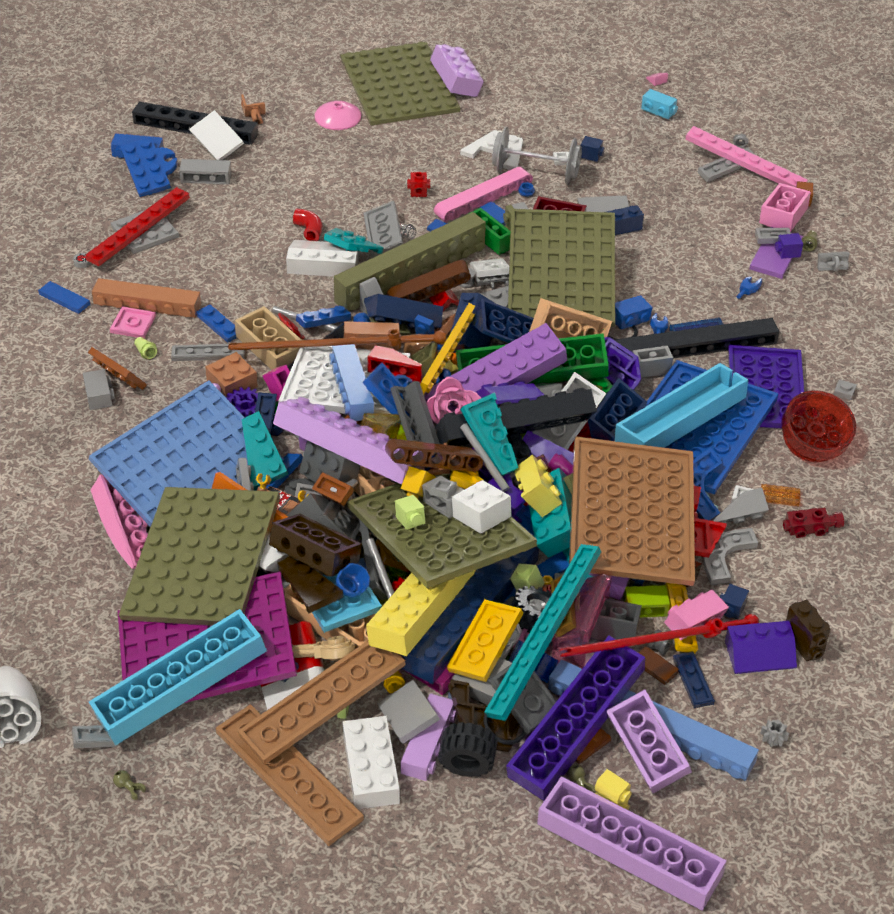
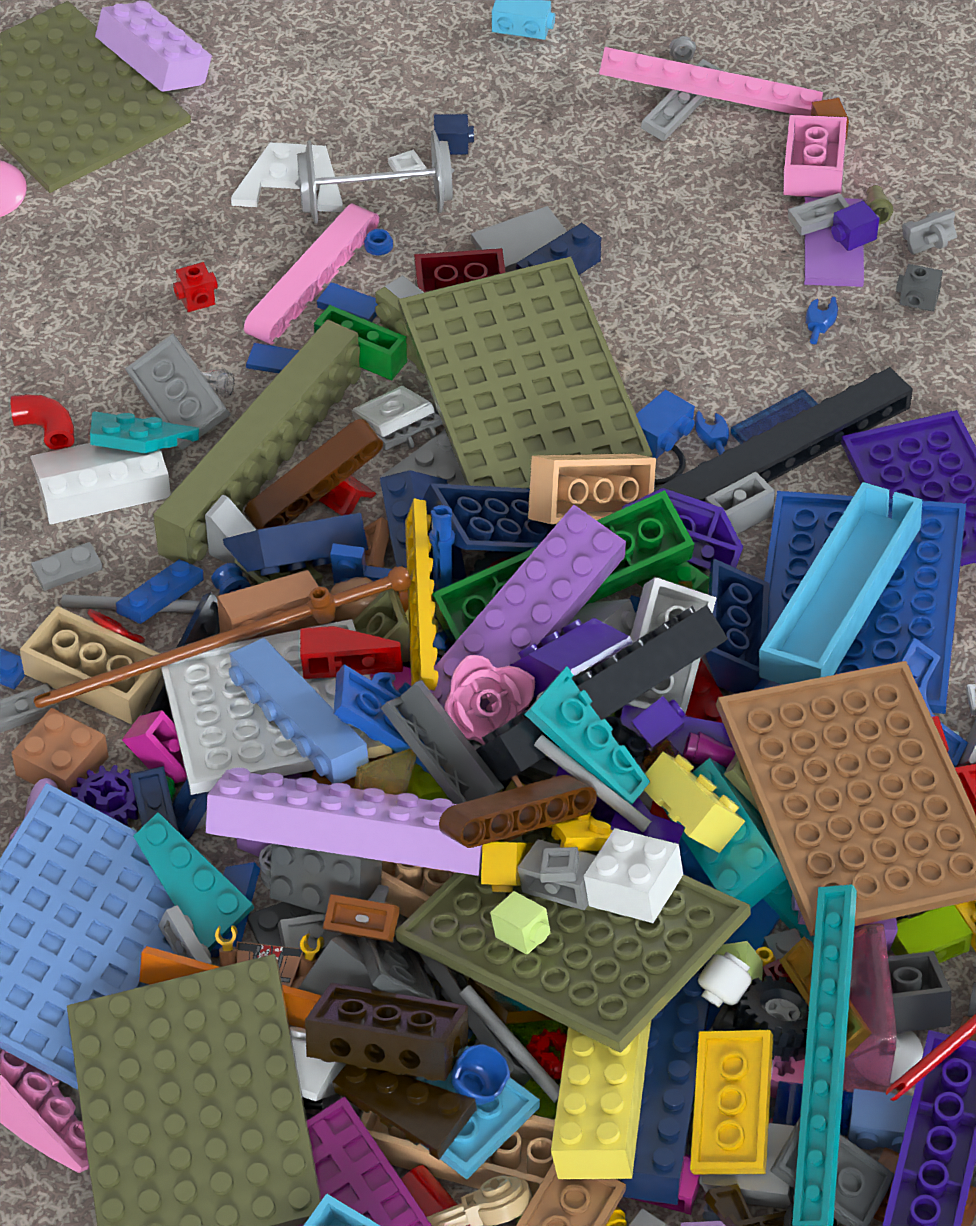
camera: 20 degrees left, 5 degrees up
(284, 294) = (66, 566): none -> light grey plate
(472, 326) = (442, 539): none -> blue pin
(512, 578) = (724, 979): none -> white head
(541, 442) = (659, 722): none -> dark purple brick
(811, 285) = (920, 287): none -> dark grey brick

